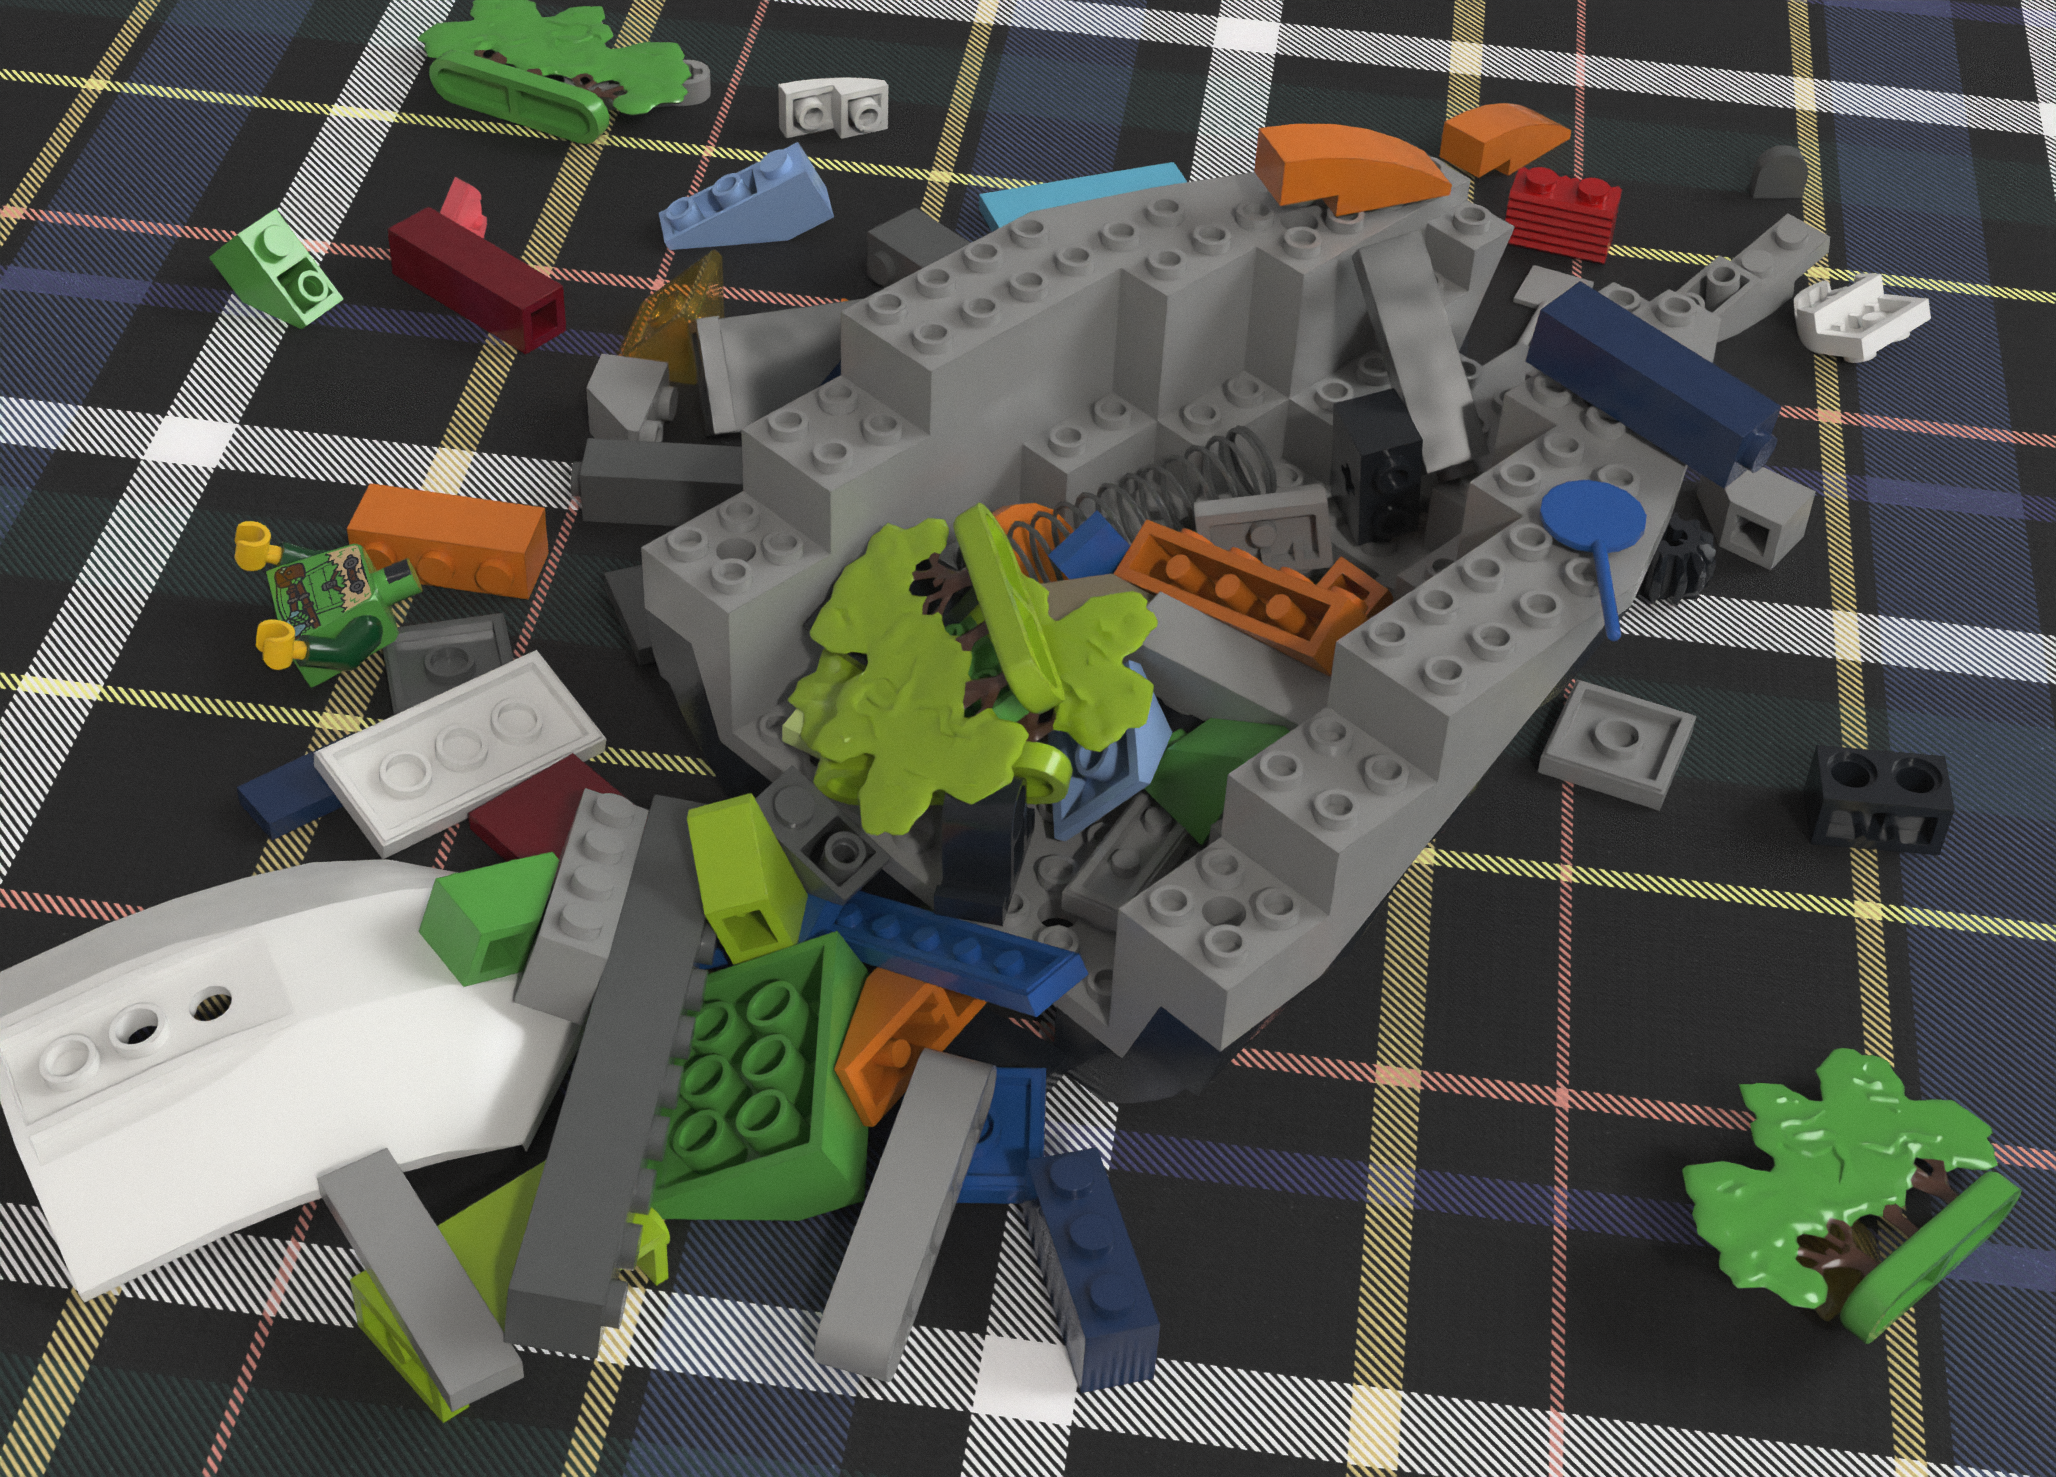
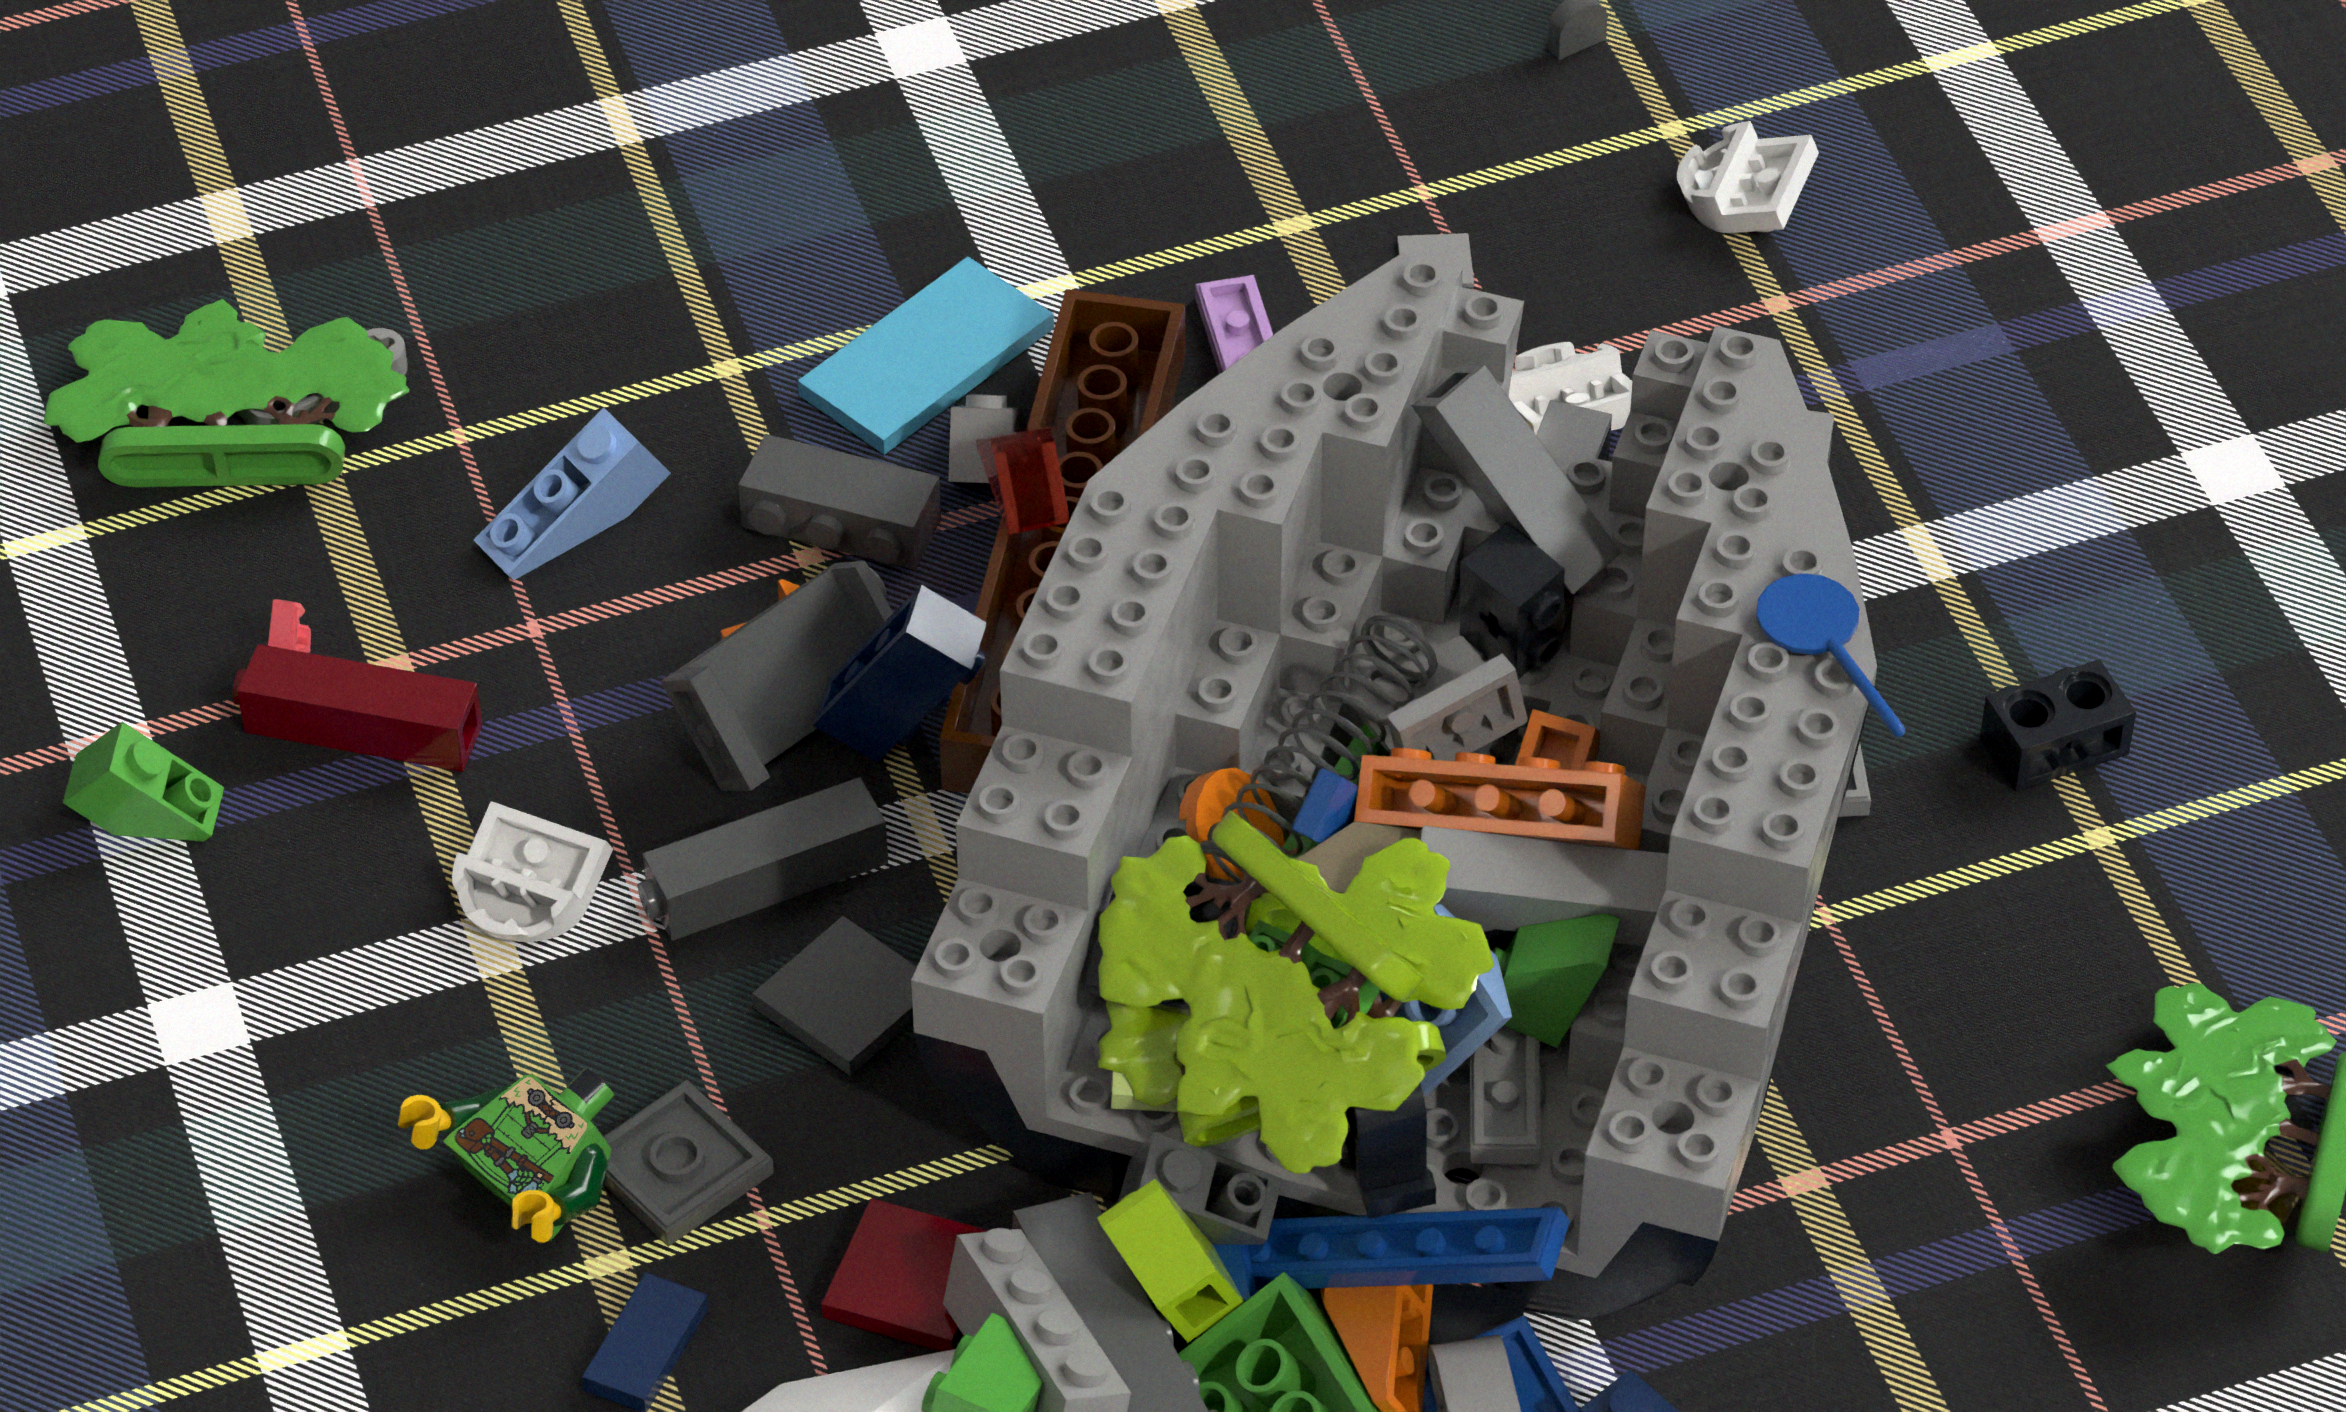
camera: 25 degrees left, 5 degrees up
(453, 539) = (578, 1021): orange brick -> none
(456, 752) = (765, 1246): white tile -> none
(502, 431) = (527, 875): none -> white slope
(630, 399) = (635, 793): light grey slope -> none
(663, 318) = (604, 676): clear yellow slope -> none
(844, 104) = (575, 324): white slope -> none
(1344, 167) = (1367, 318): orange slope -> none
(1499, 138) = (1279, 91): orange slope -> none
(1562, 214) = (1402, 169): red brick -> none
(1654, 385) = (1787, 455): dark blue brick -> none
(1758, 277) = (1623, 185): light grey slope -> none

